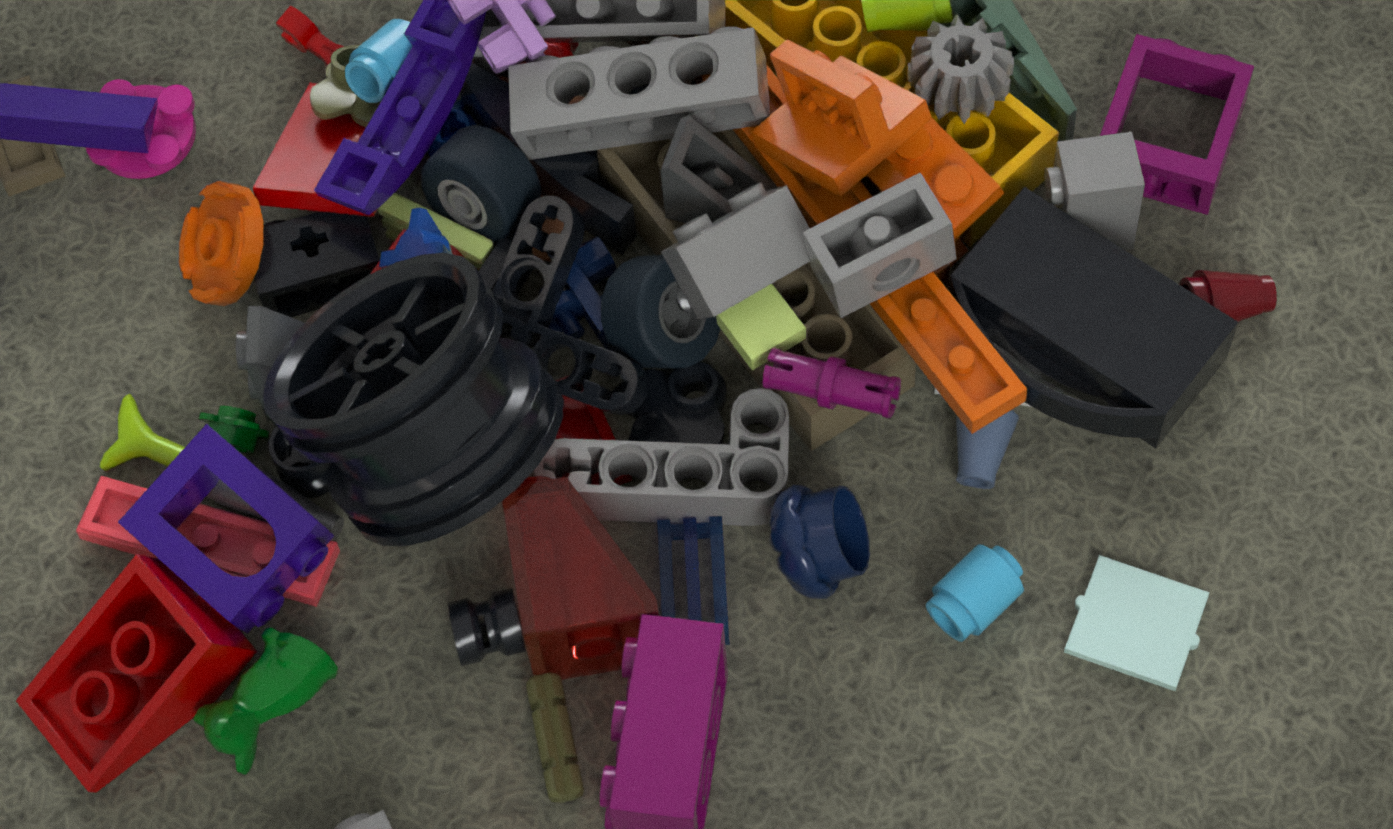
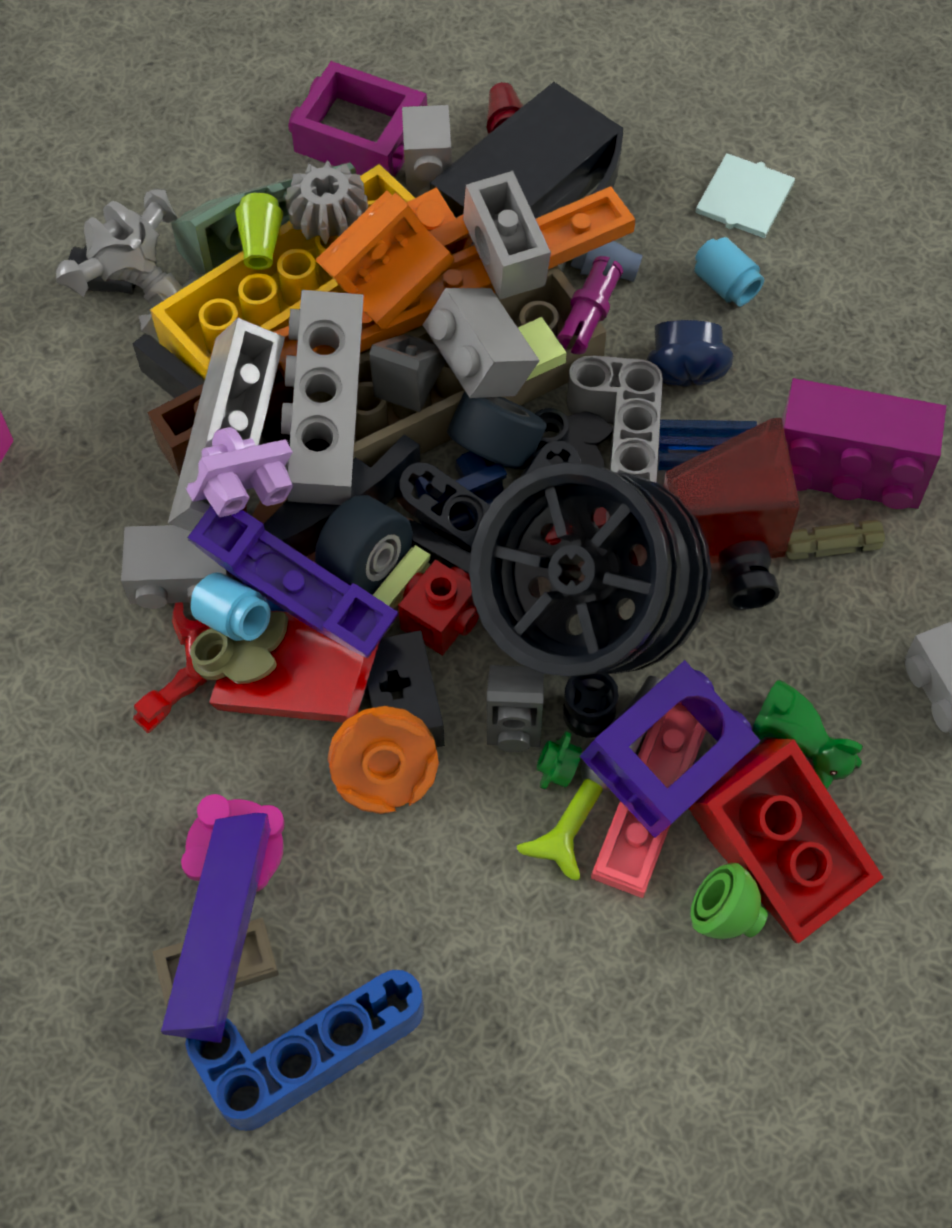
camera: 90 degrees left, 0 degrees up
(46, 613) = (728, 904): none -> bright green brick
(419, 239) = (443, 571): blue piece -> none

